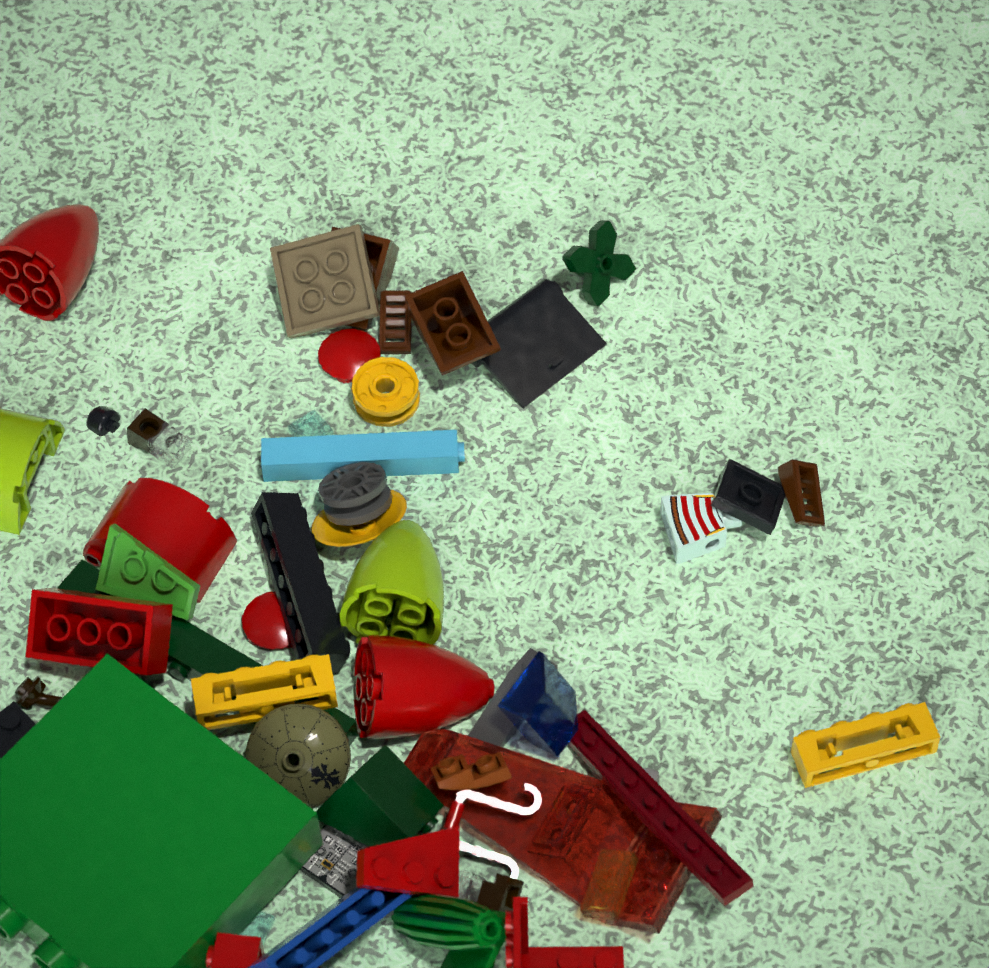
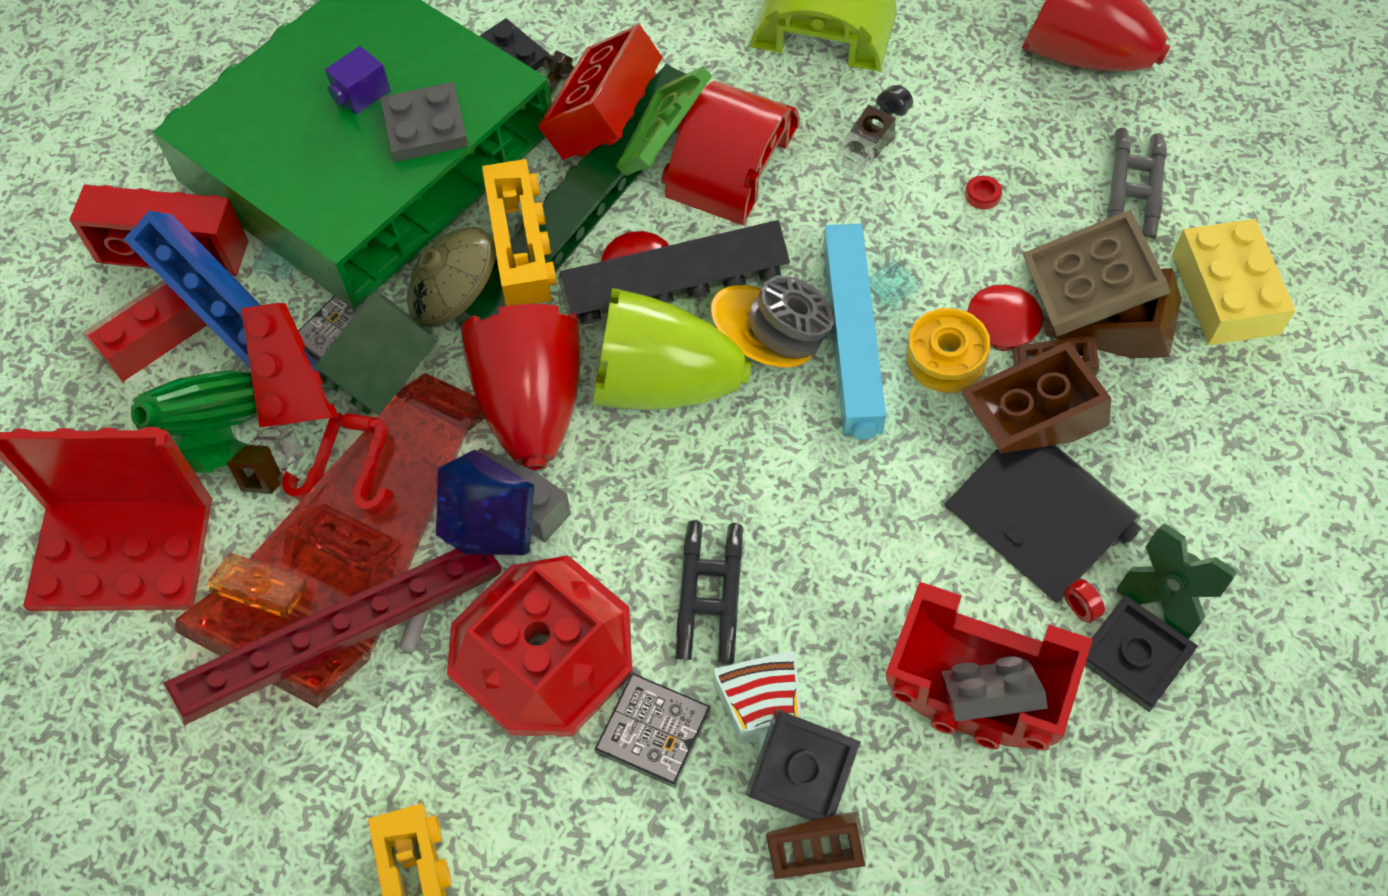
camera: 90 degrees right, 5 degrees up
(104, 806) = (357, 80): none -> dark purple brick
(156, 750) = (424, 122): none -> dark grey plate
(217, 360) = (983, 192): none -> red tile
(226, 262) = (1152, 192): none -> dark grey piece
(330, 197) = (1233, 282): none -> light yellow brick
(456, 774) = (403, 434): dark orange slope -> none
(609, 322) = (1084, 601): none -> red tile
(617, 573) = (689, 602): none -> black piece
(646, 299) = (1138, 653): none -> black tile
(648, 704) = (551, 684): none -> red piece
(680, 370) = (940, 638): none -> red cylinder
(692, 371) = (993, 689): none -> dark grey plate
(718, 601) = (653, 730): none -> tile

